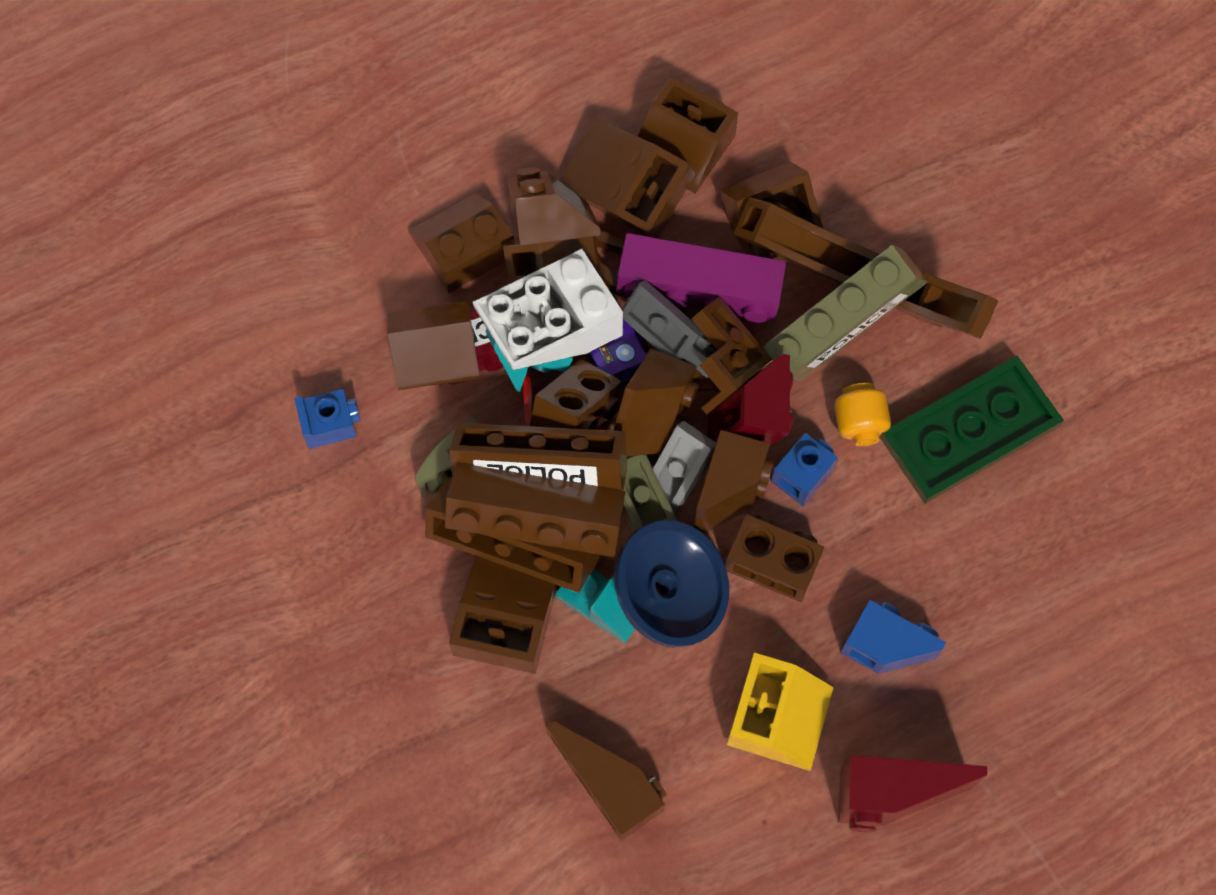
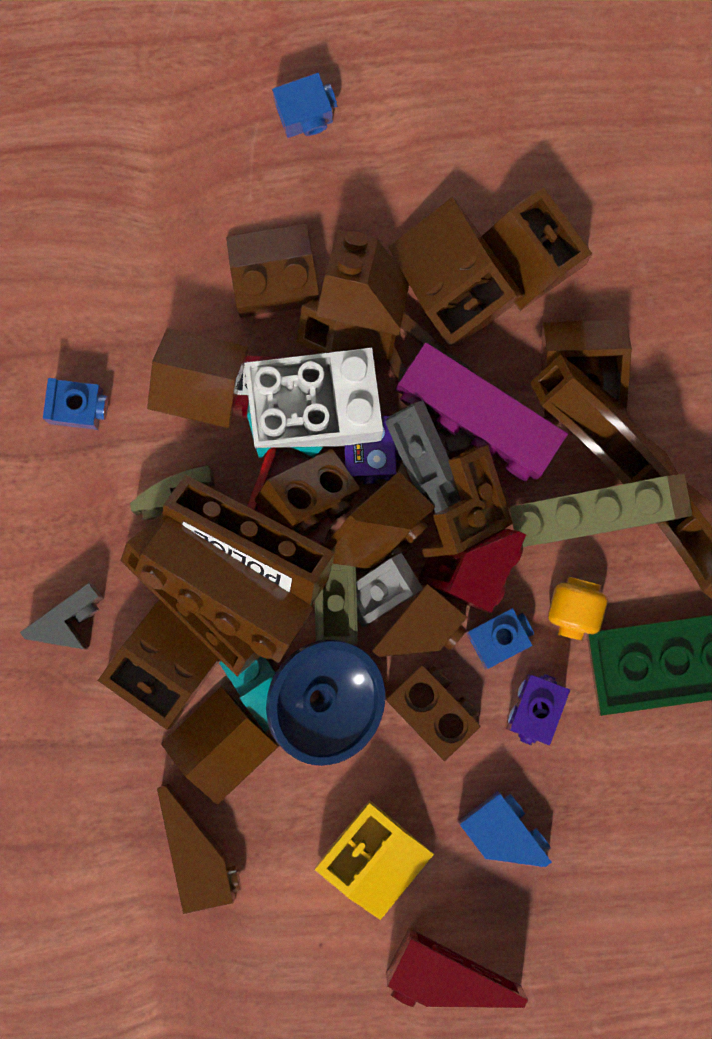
camera: 25 degrees right, 15 degrees up
(387, 621) = (56, 625): none -> dark grey slope
(433, 97) = (305, 105): none -> blue brick
(588, 670) = (218, 746): none -> reddish brown slope
(868, 516) = (524, 720): none -> dark purple head

